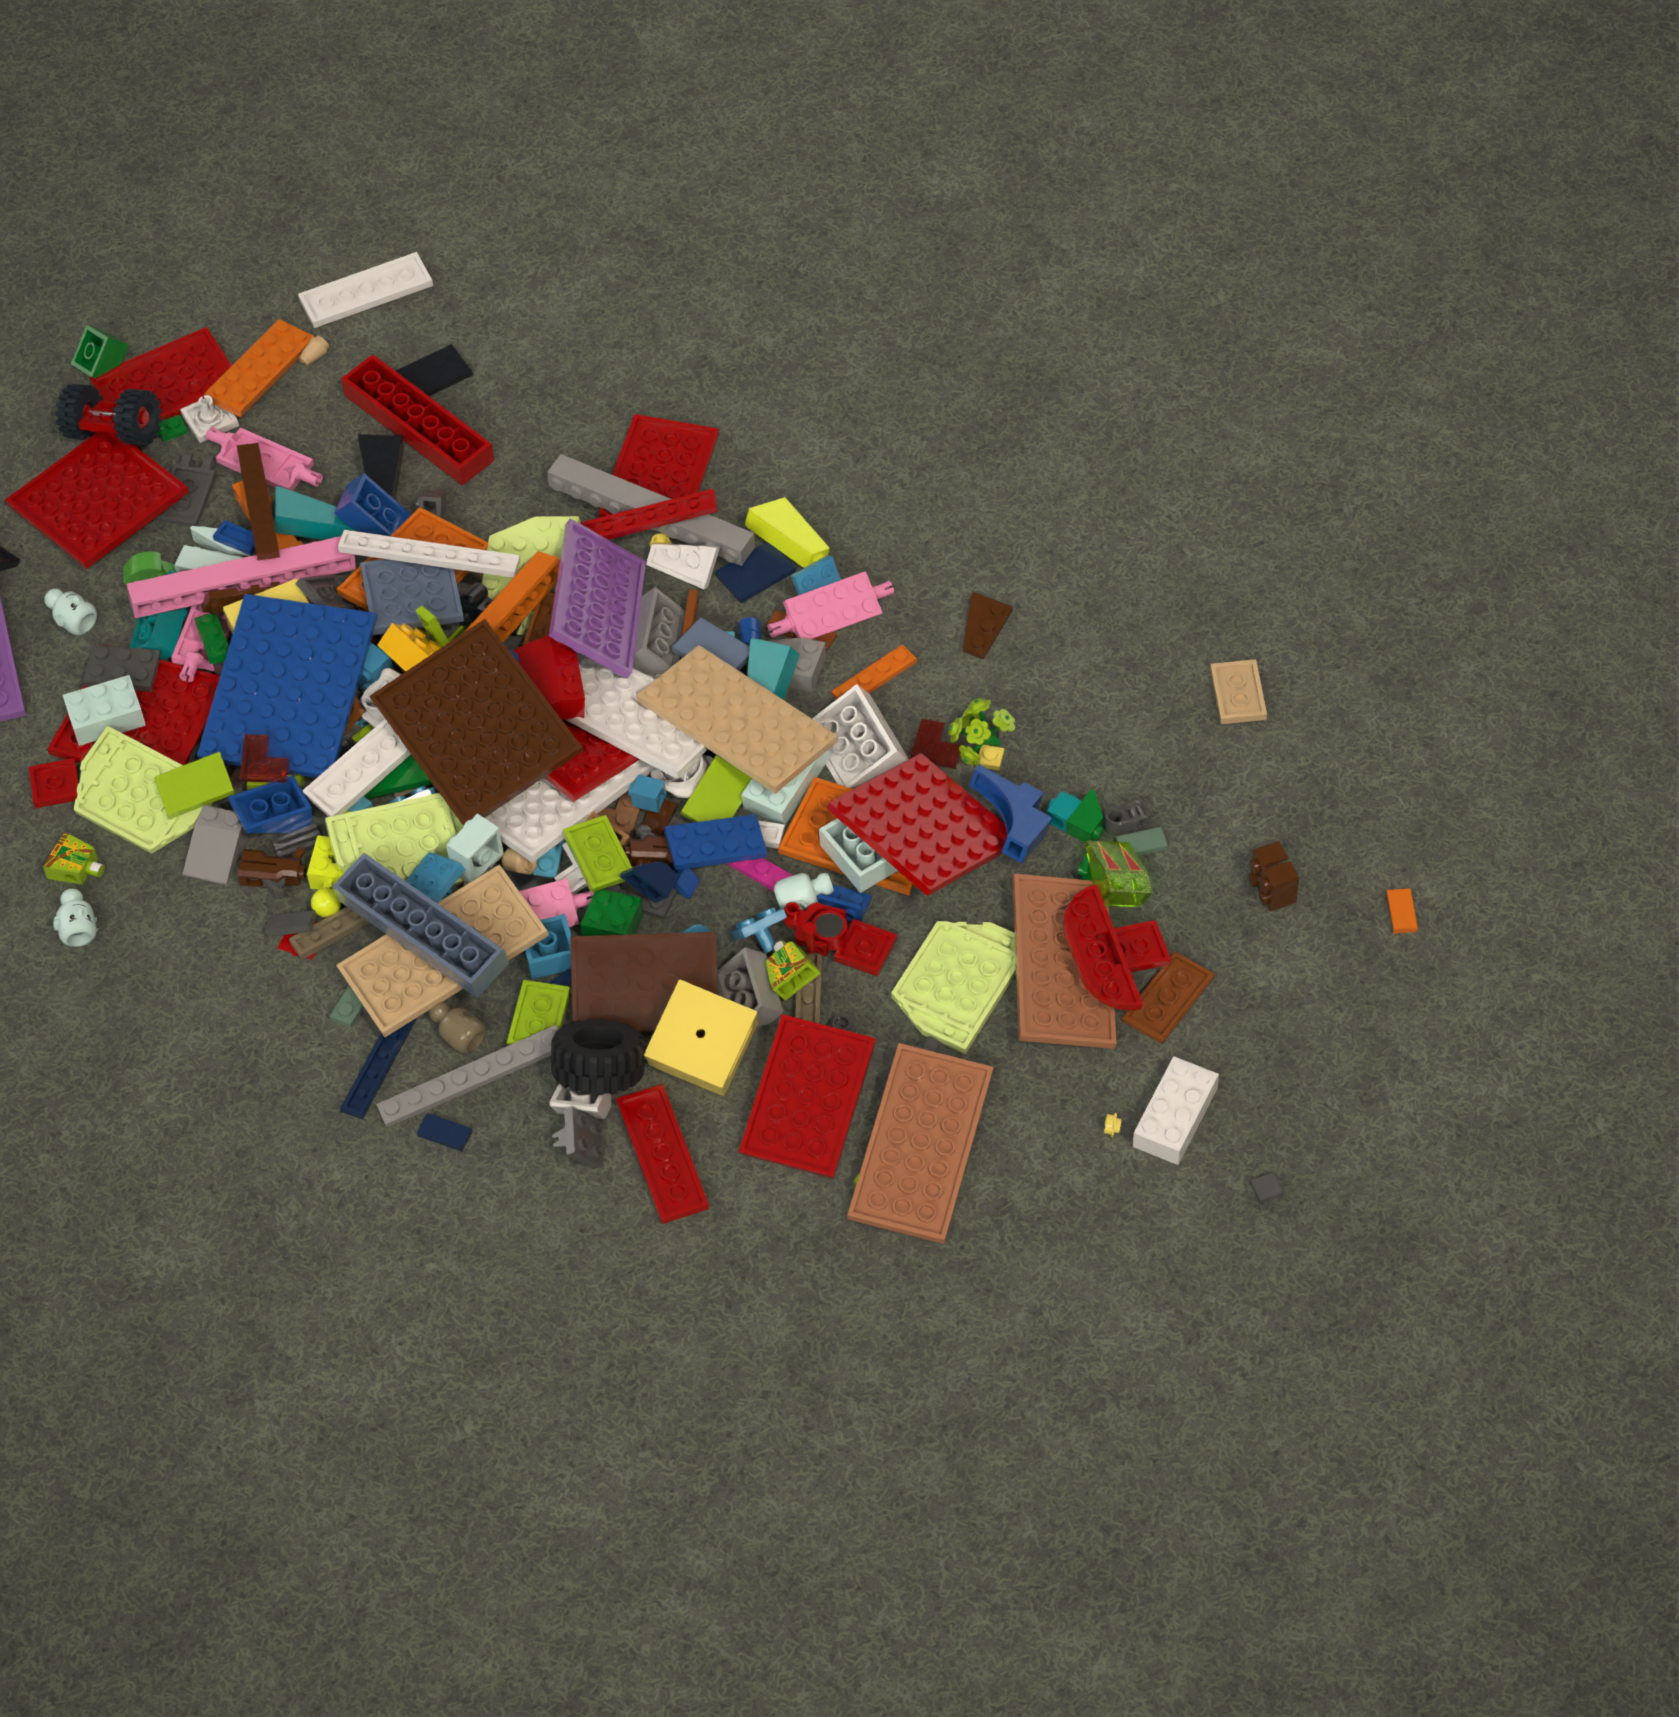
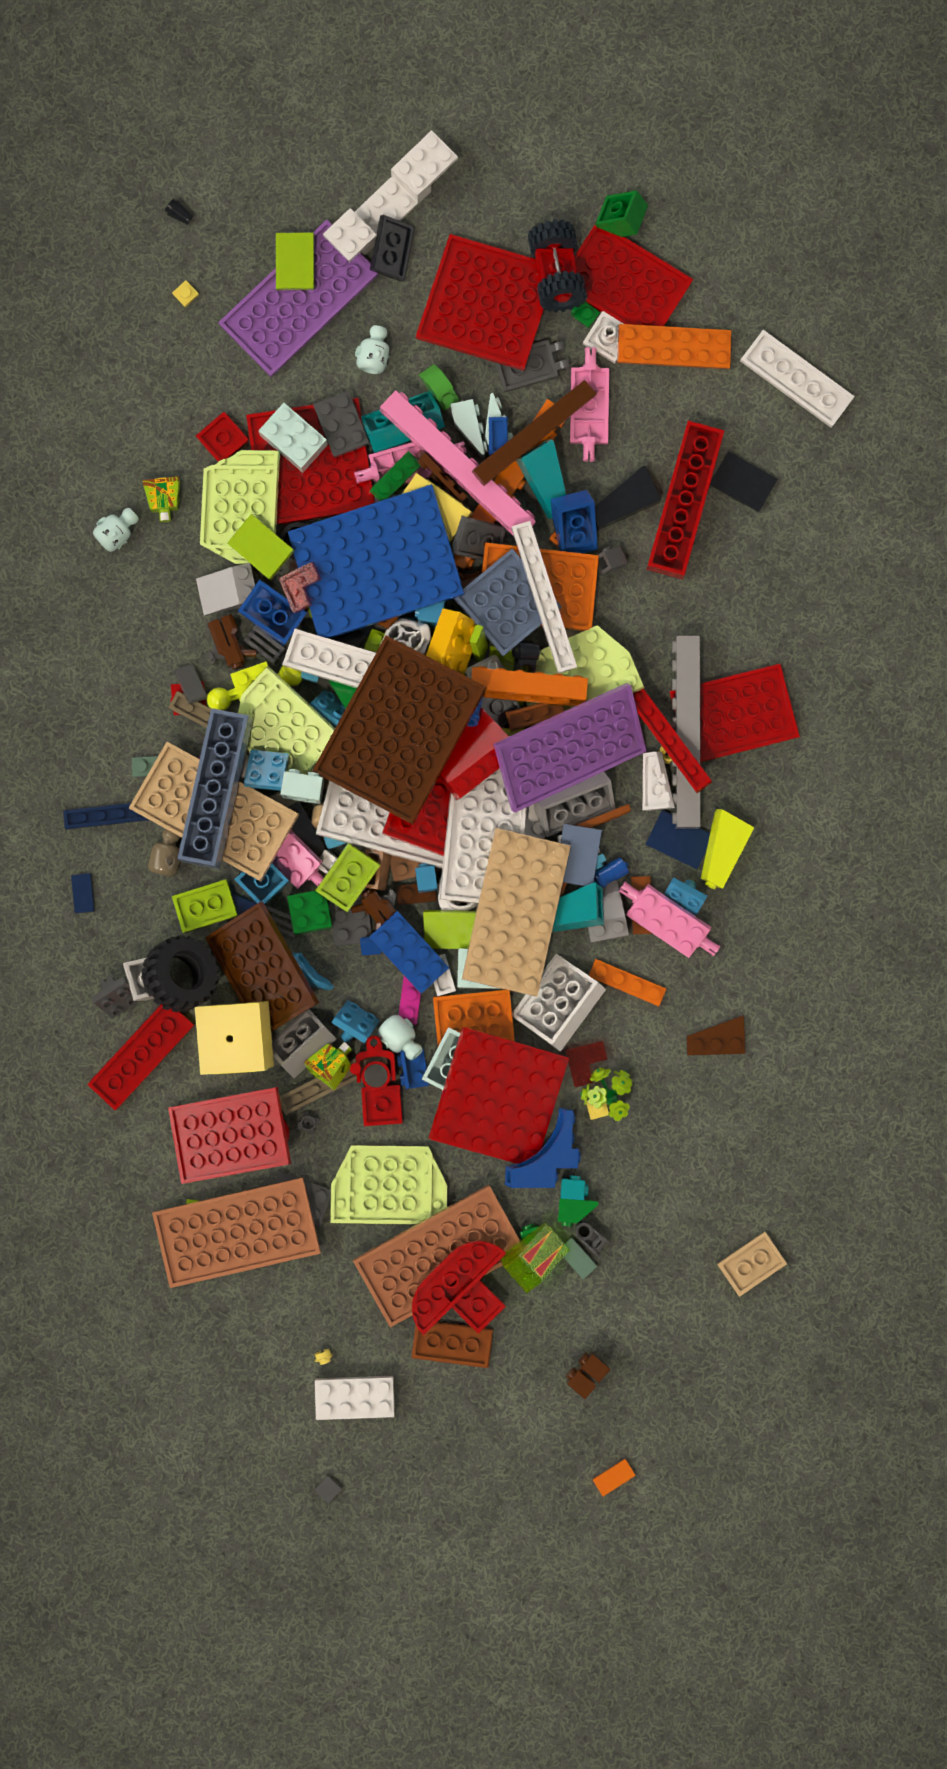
camera: 60 degrees right, 30 degrees up
(314, 350) = (715, 376): tan cone -> none
(467, 1077) = (132, 887): light grey plate -> none
(651, 879) = (349, 926): dark blue slope -> none

